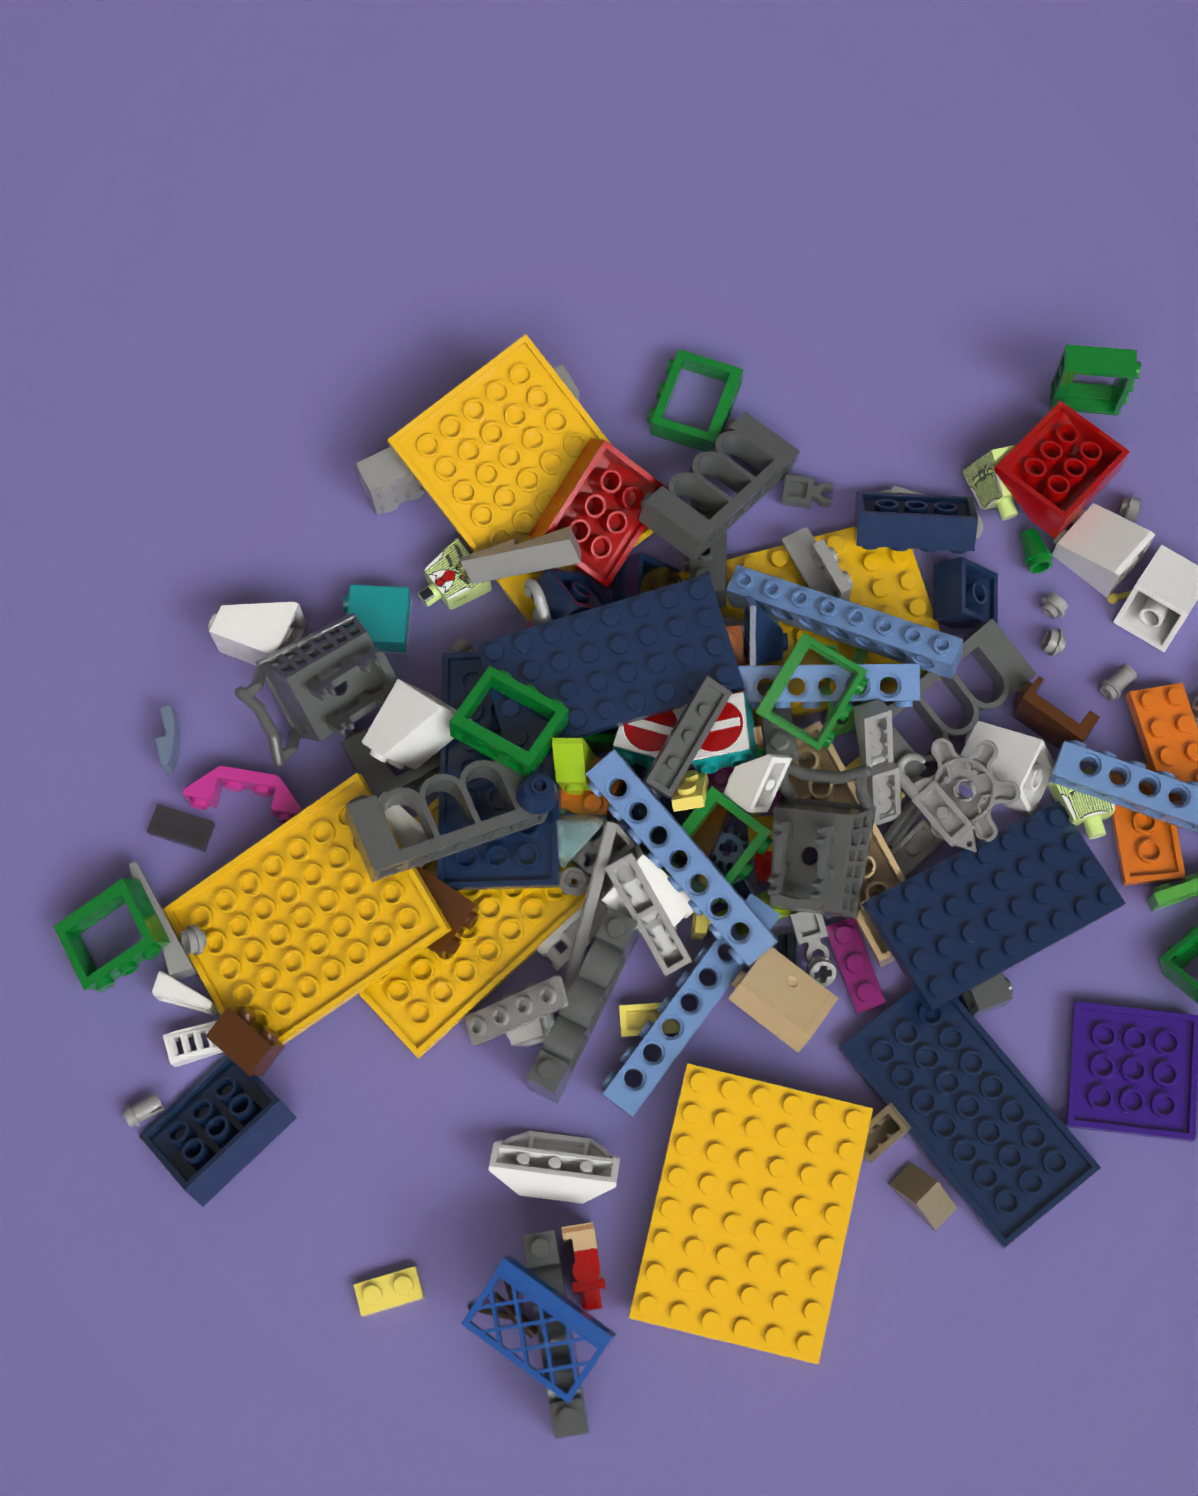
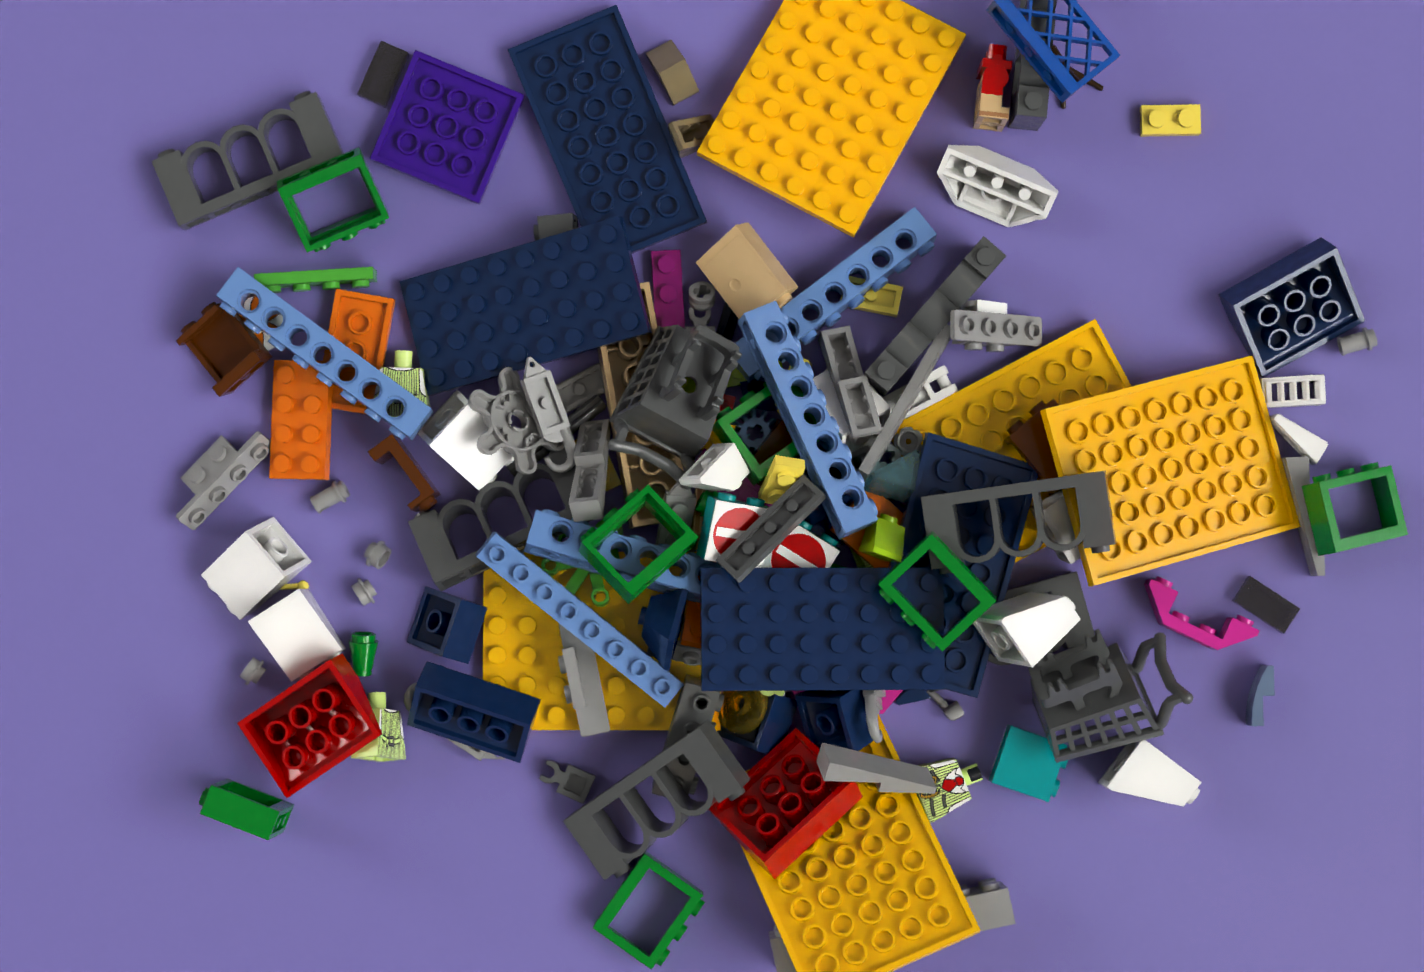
camera: 170 degrees left, 15 degrees up
(193, 940) = (1279, 482): light grey plate -> none
(246, 1040) = (1251, 372): reddish brown piece -> none
(536, 793) = (930, 504): dark blue cone -> none

